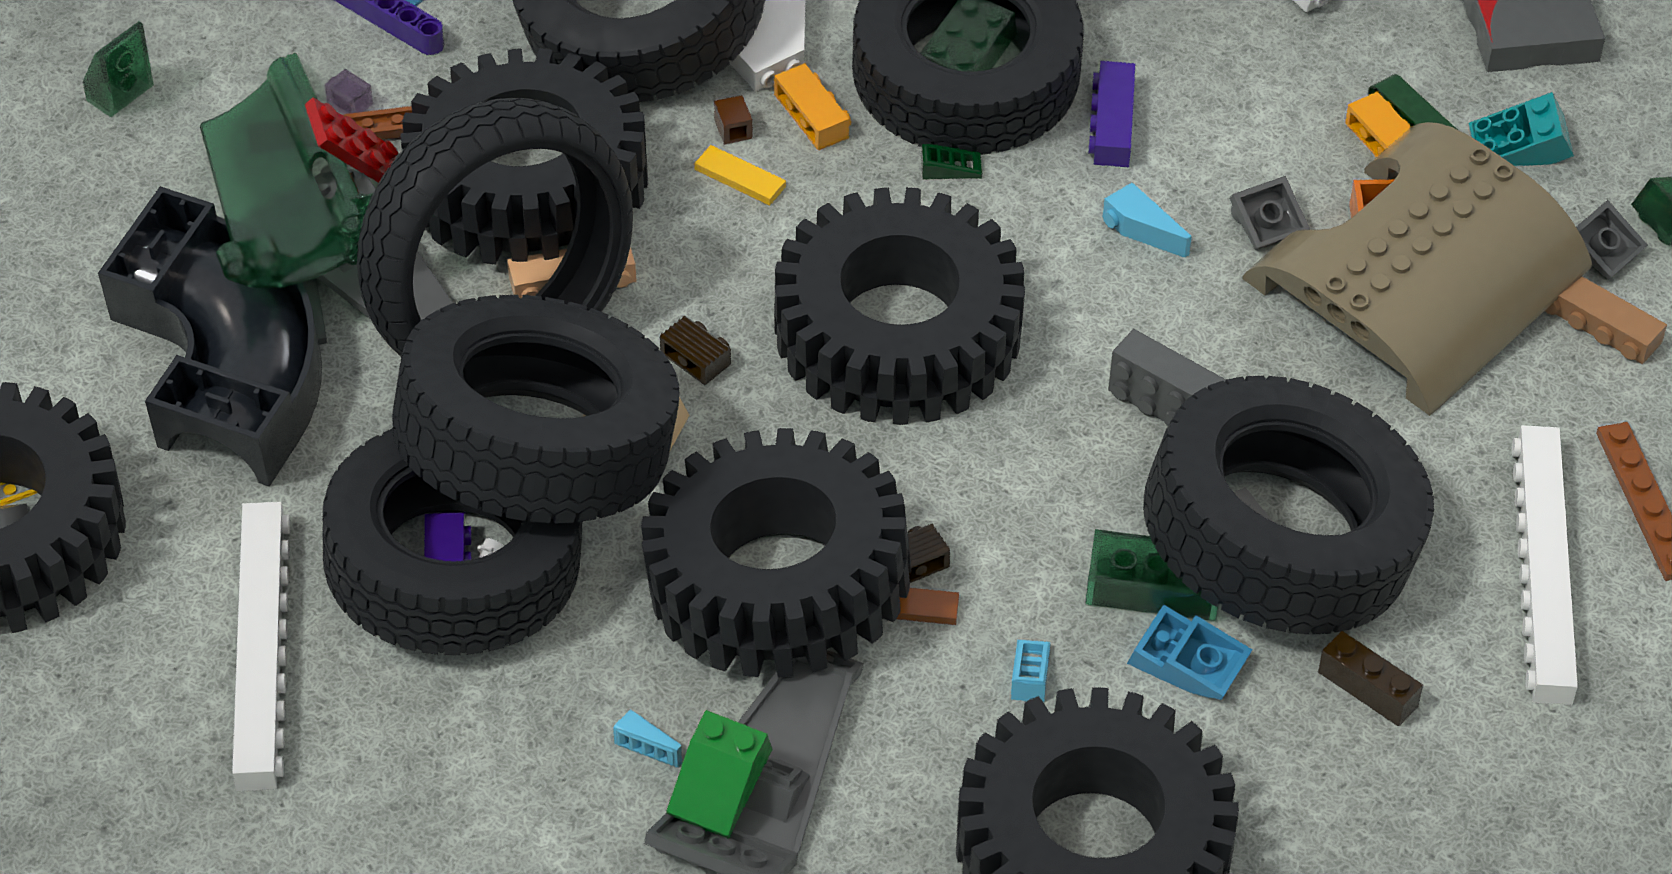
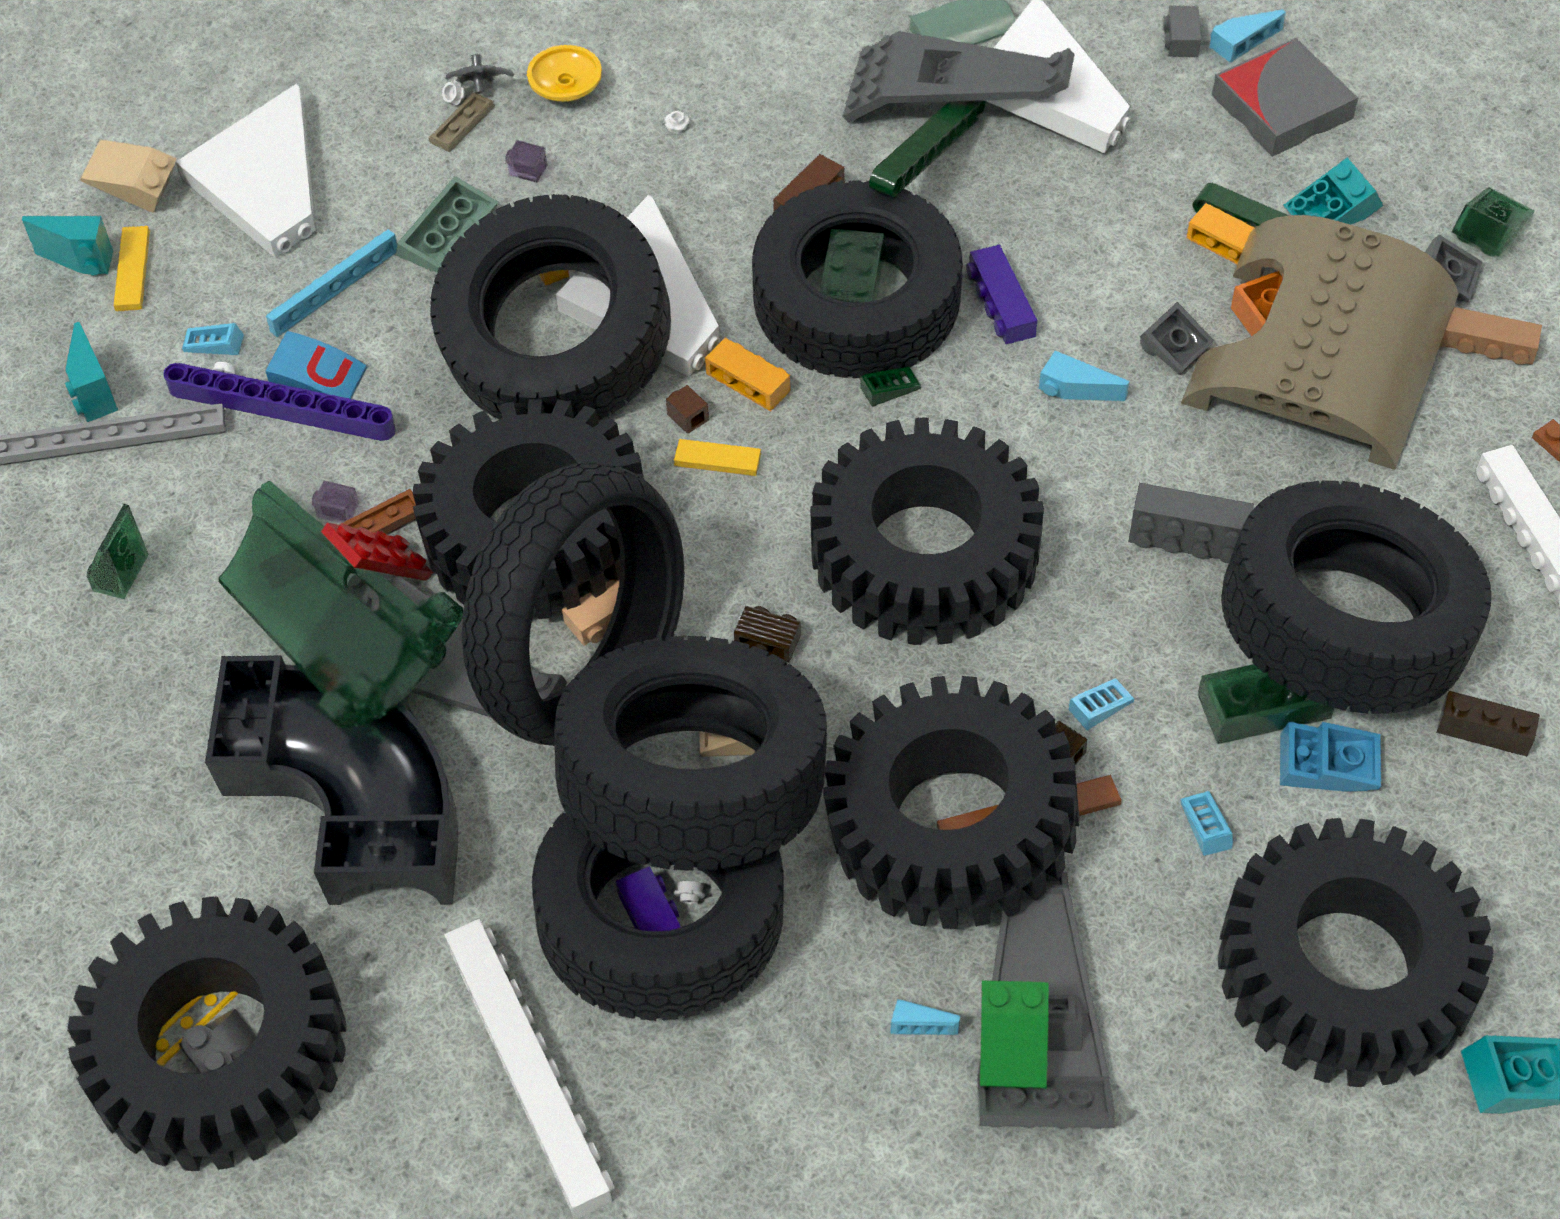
camera: 20 degrees left, 5 degrees up
(982, 535) = (1091, 718): none -> medium azure slope

